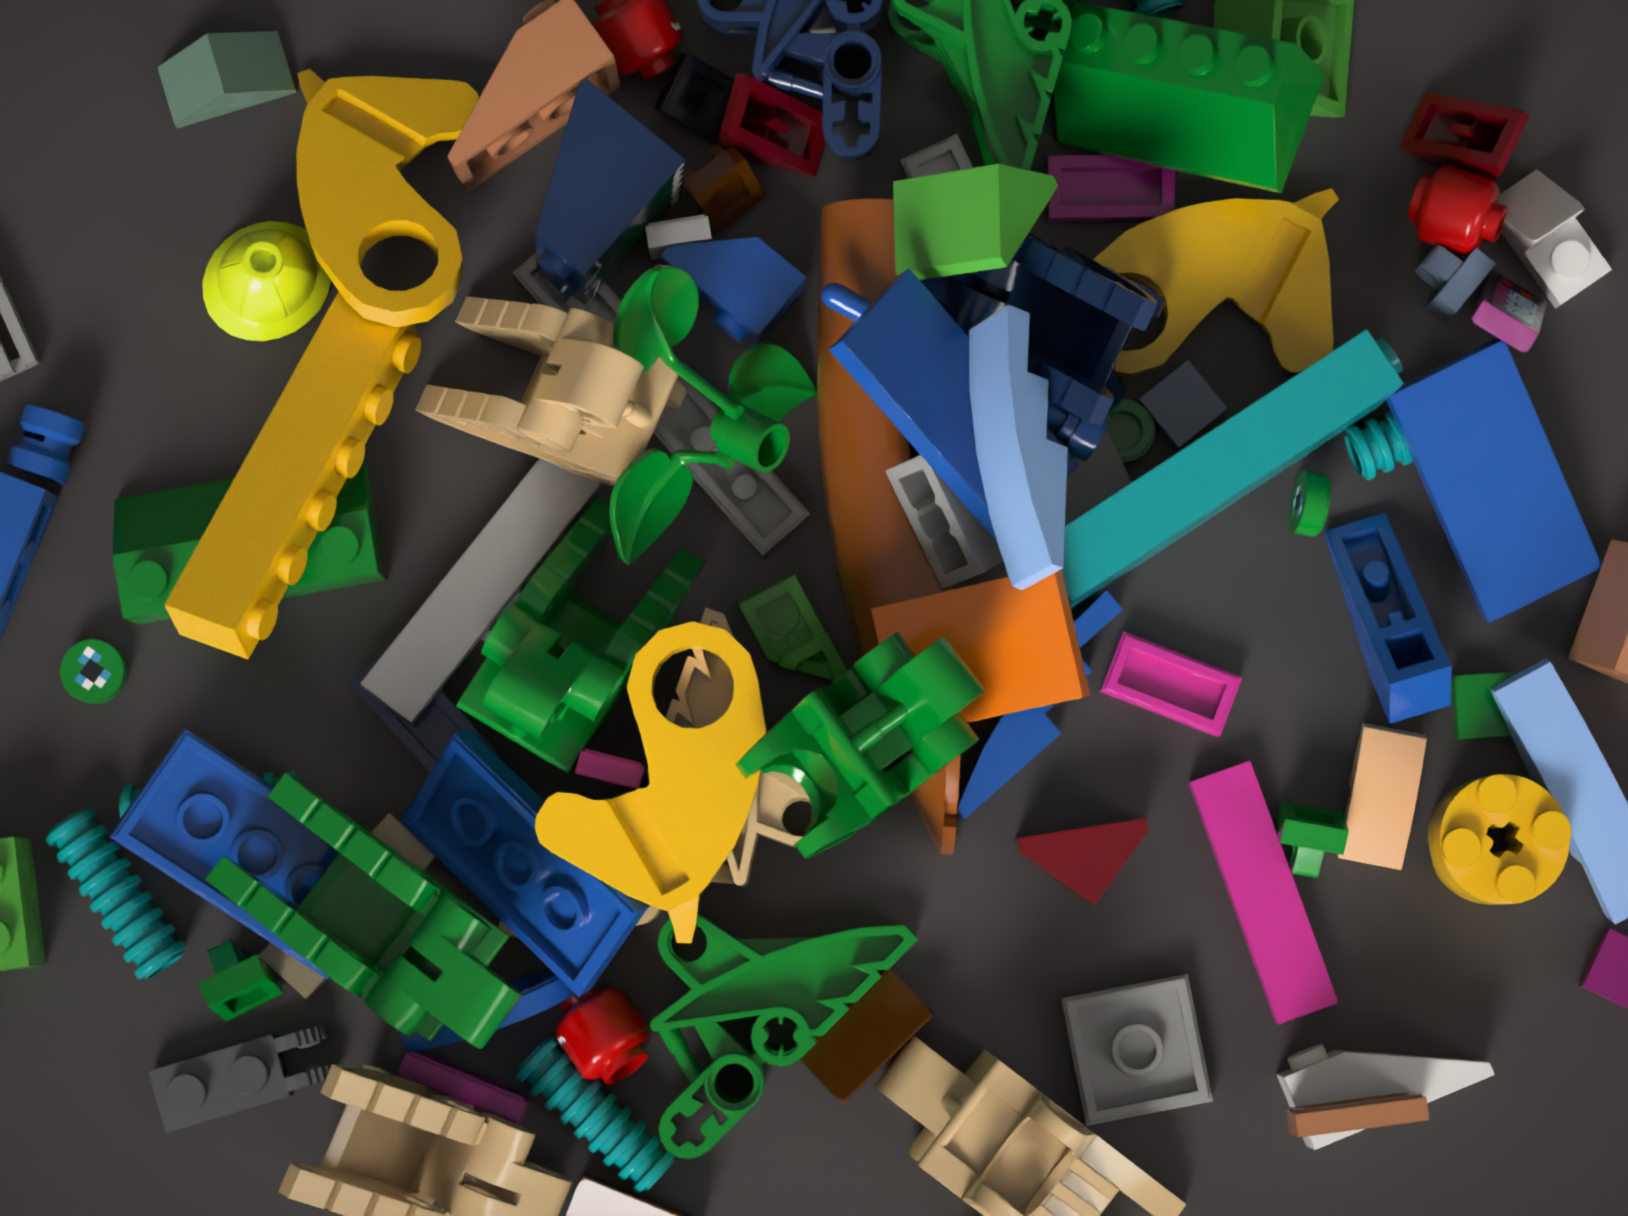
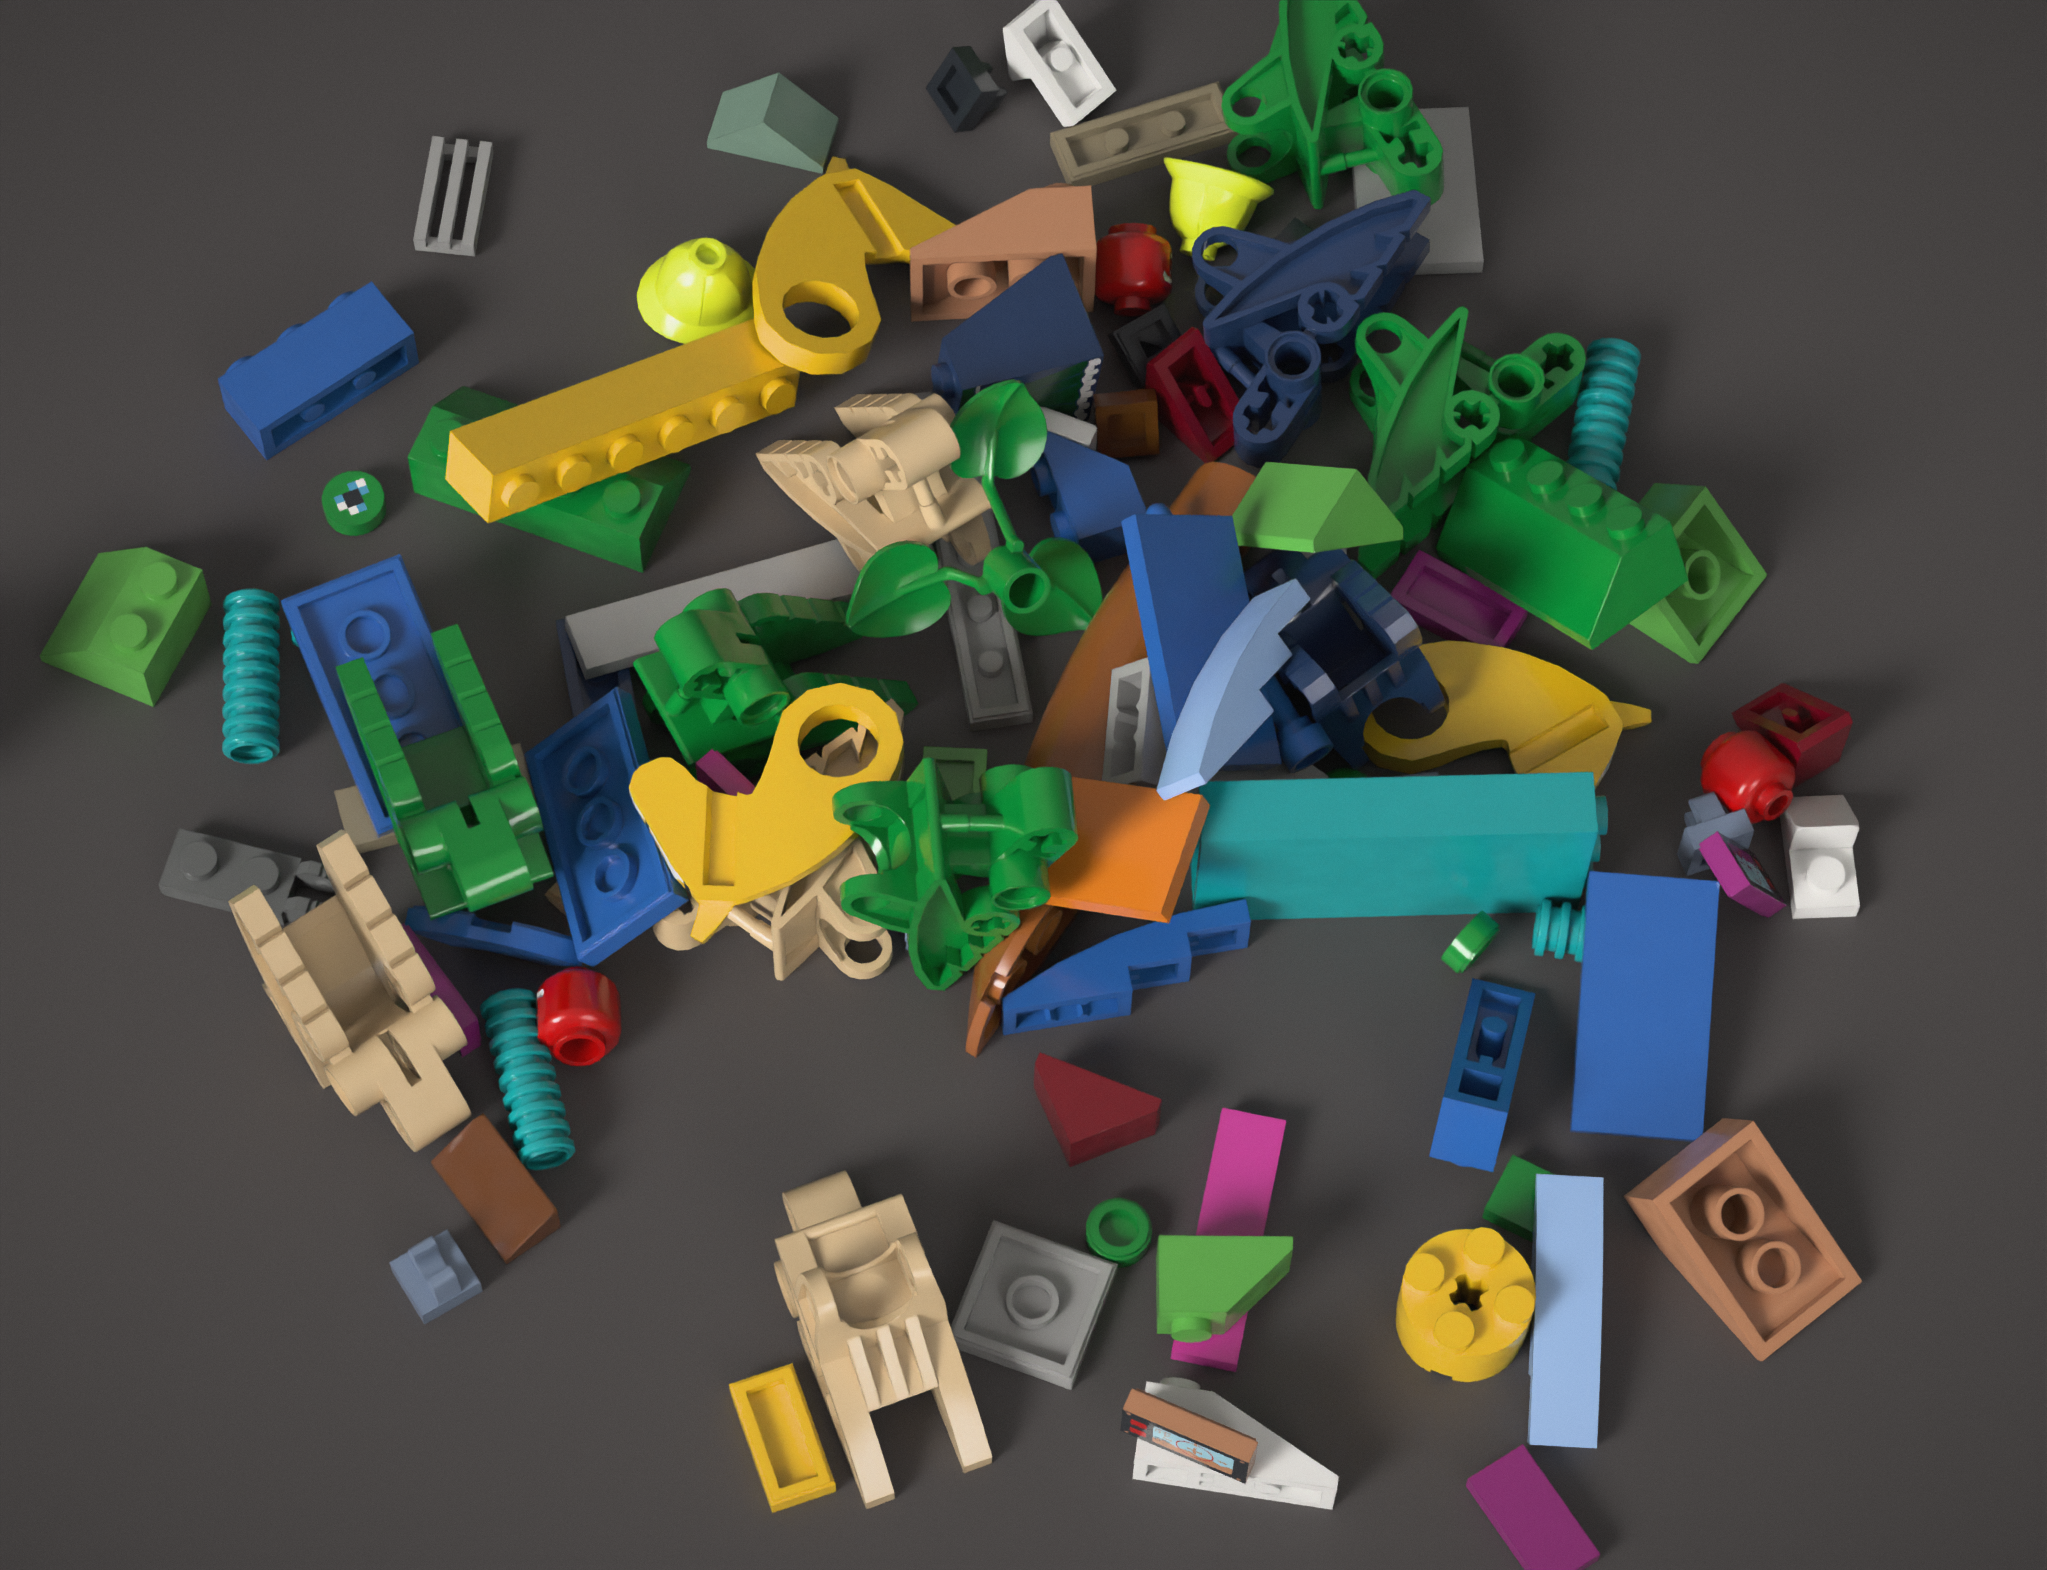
camera: 30 degrees right, 20 degrees down
(45, 444) = (438, 308): blue wheel -> none
(238, 982) = (302, 800): green tile -> none
(767, 978) = (737, 1049): green piece -> none
(867, 1036) = (802, 1154): reddish brown slope -> none
(1168, 942) = (1119, 1231): none -> green tile
(1170, 684) = (1256, 1025): dark pink tile -> none
(1285, 955) = (1214, 1280): none -> bright green slope
(1310, 834) = (1298, 1209): green tile -> none
(1383, 795) = (1384, 1217): light nougat slope -> none

